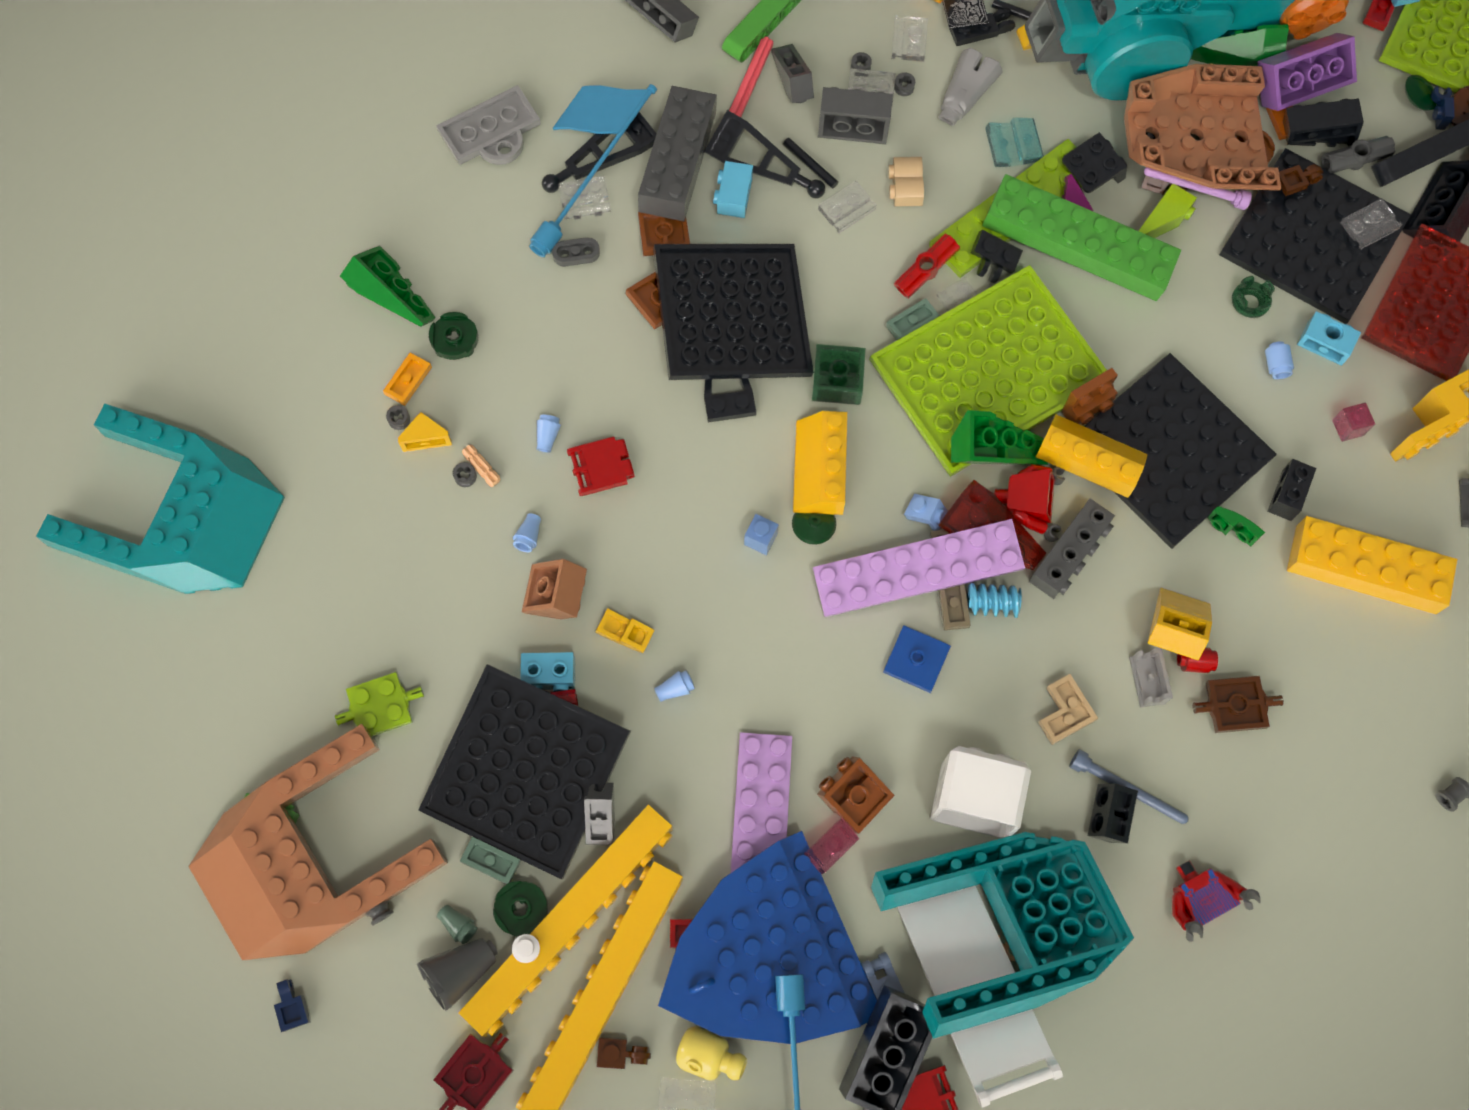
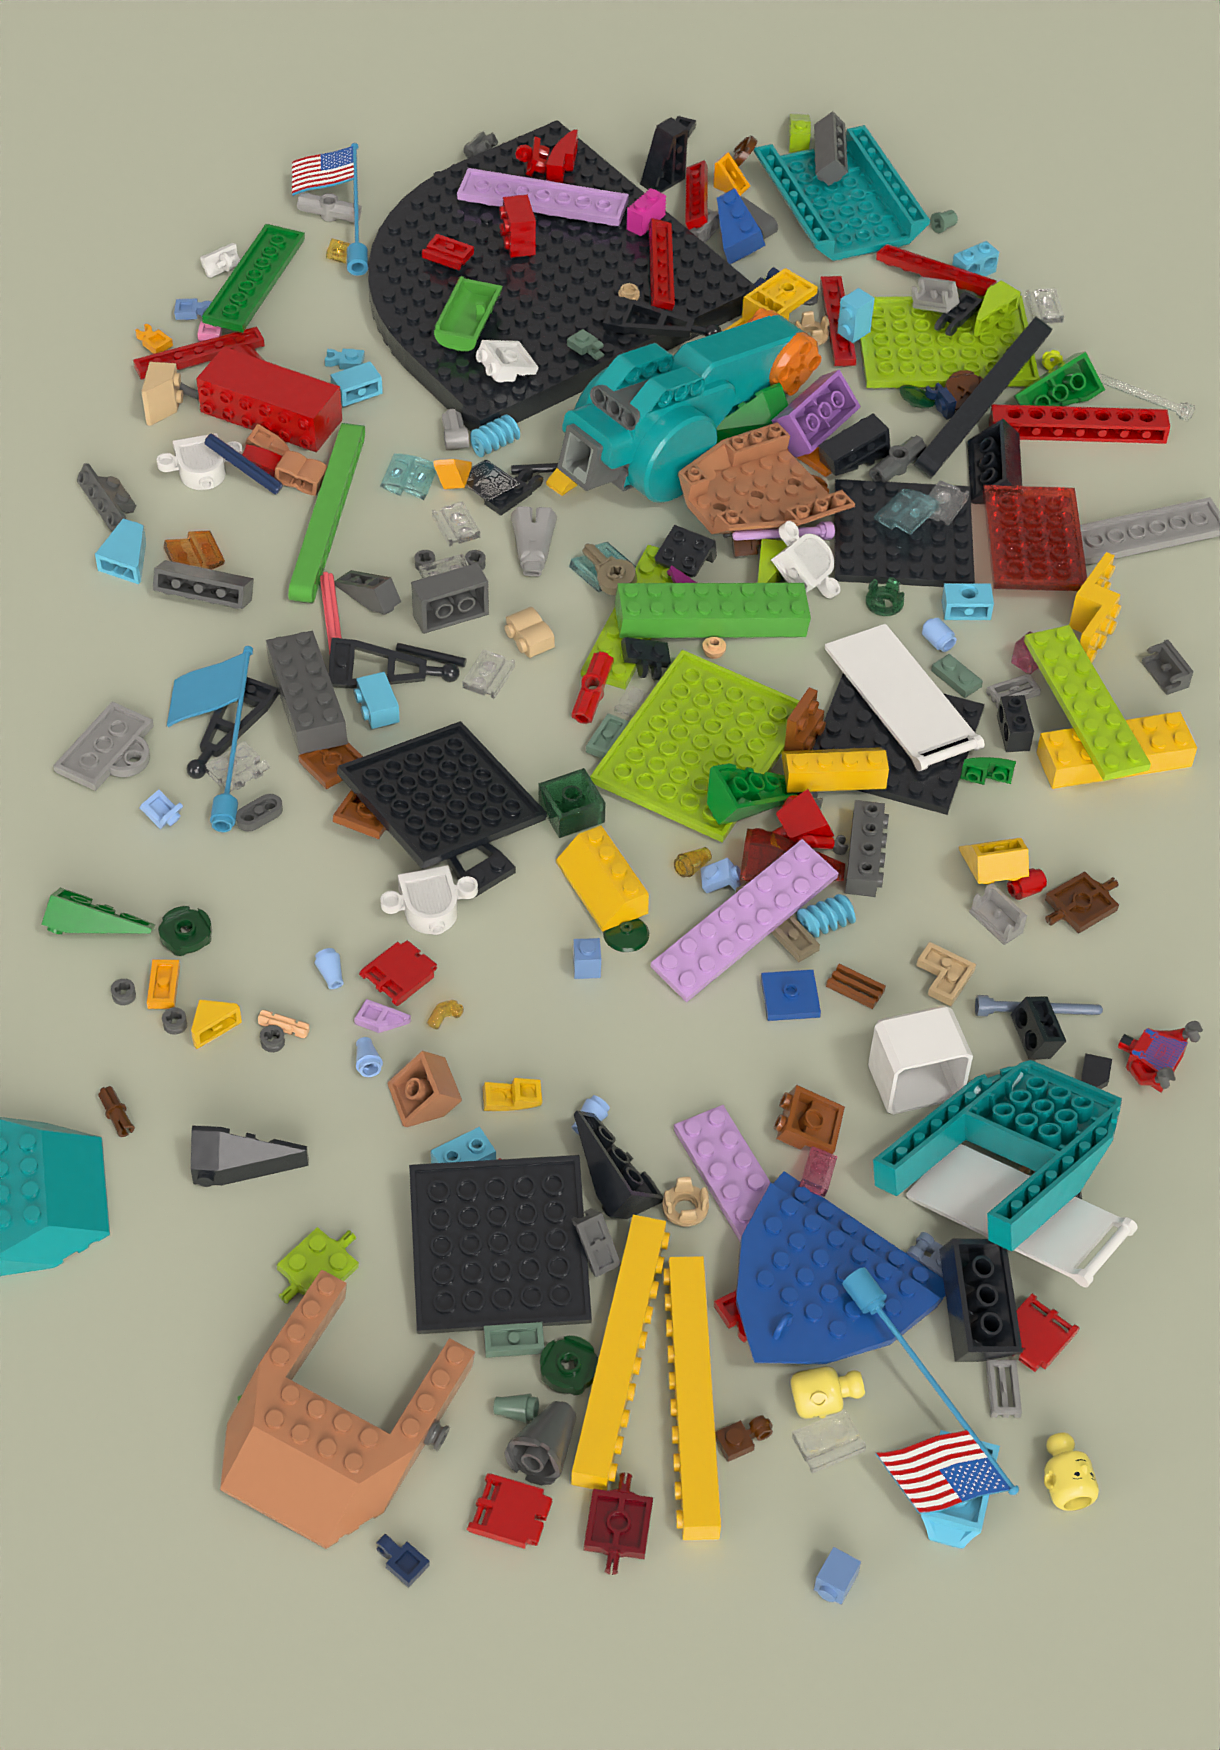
camera: 30 degrees left, 20 degrees down
(305, 479) = (116, 1111): none -> reddish brown axle
(352, 568) = (230, 1158): none -> black wedge
(371, 363) = (123, 984): none -> dark grey bush
(397, 1015) = (511, 1512): none -> red plate
(498, 210) = (161, 810): none -> light blue bracket
(525, 948) = (601, 1381): white plate -> none
(561, 499) = (380, 1017): none -> lavender tile
(615, 520) = (443, 1010): none -> clear yellow arm
(660, 756) = (614, 1178): none -> black wedge
(665, 408) = (429, 898): none -> white piece
(704, 798) = (686, 1192): none -> tan piece
(910, 483) = (690, 862): none -> clear yellow cone
(988, 676) = (858, 983): none -> dark orange tile
(1014, 157) = (610, 570): none -> dark tan piece
(1059, 277) = (714, 647): none -> light nougat plate
(1138, 881) = (1096, 1070): none -> black tile
(1198, 227) = (806, 561): none -> white piece
(1203, 409) = (903, 695): none -> white flag
(1270, 410) = (957, 675): none -> sand green plate
(1295, 453) = (1030, 690): none -> light grey tile
(1296, 180) = (865, 494): reddish brown plate -> none
(1329, 216) = (907, 510): none -> clear light blue slope
(1369, 508) = (1087, 703): none -> lime plate

